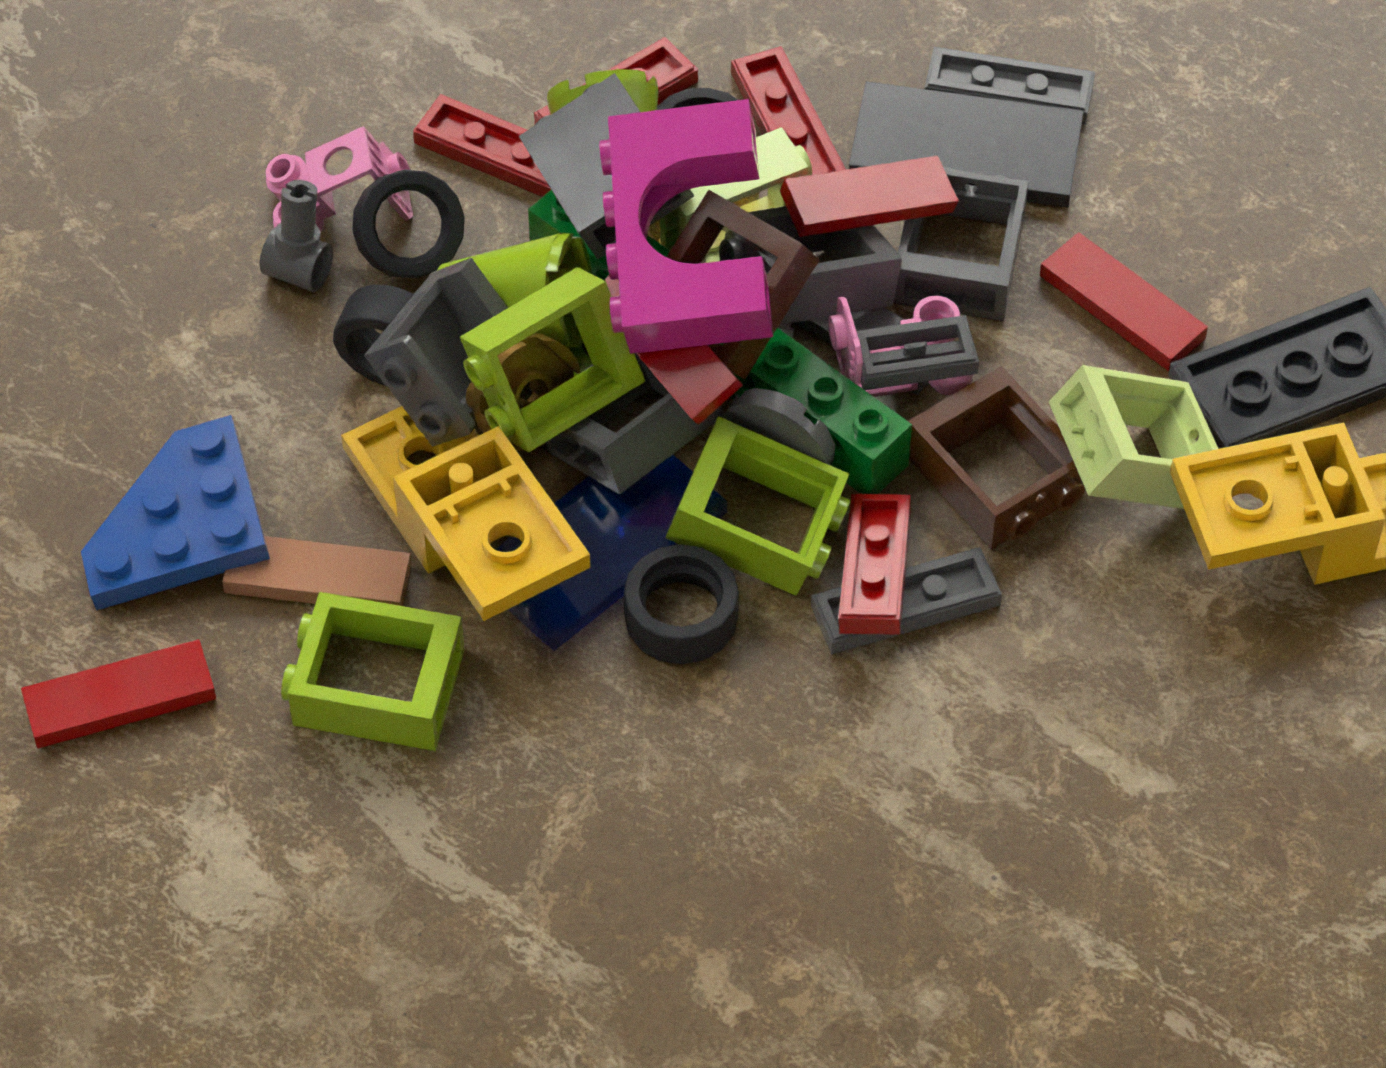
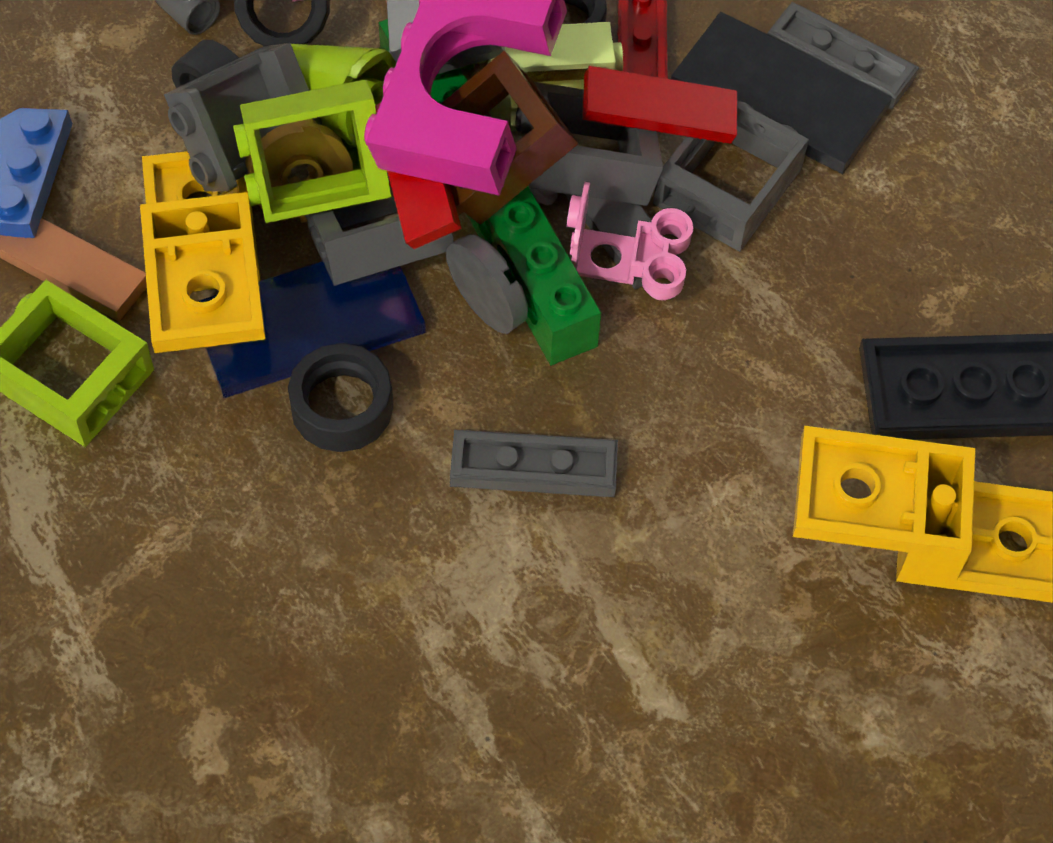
camera: 20 degrees right, 5 degrees up
(775, 468) = (440, 276): lime window -> none
(875, 564) = (517, 423): tile -> none
(917, 360) = (633, 259): dark grey tile -> none
(967, 415) = (663, 322): reddish brown window -> none
(1093, 421) = (750, 385): yellowish green window -> none
(1123, 301) = (849, 270): tile -> none

